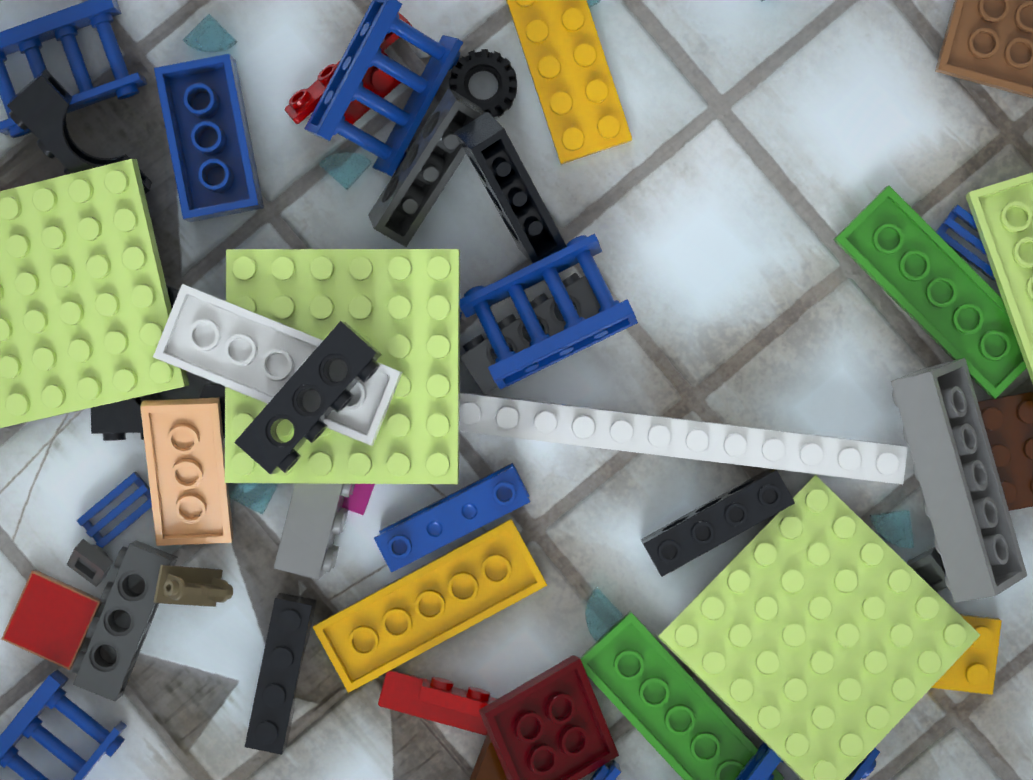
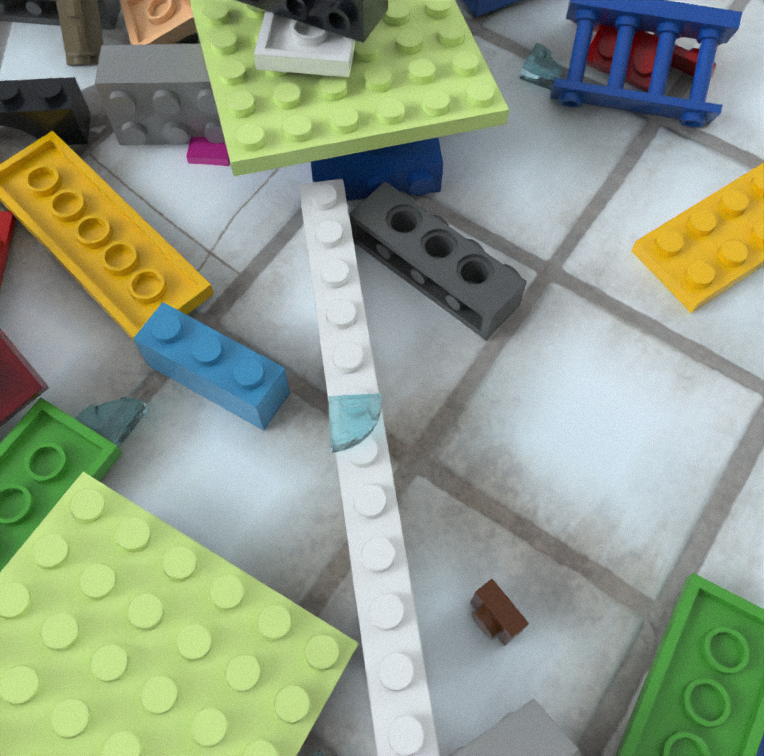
camera: 75 degrees right, 25 degrees down
(424, 170) = (585, 103): dark grey brick -> none
(452, 517) = (199, 208): blue fence -> none
(491, 63) = (687, 135): black tyre -> none
(510, 187) = (595, 161): black brick -> none
(578, 331) = (446, 268): blue fence -> none
(586, 531) = (213, 365): none -> dark azure brick
(677, 442) = (352, 419): none -> clear light blue tile
(717, 521) = (262, 521): black brick -> none
(824, 380) = (496, 613): none -> reddish brown plate

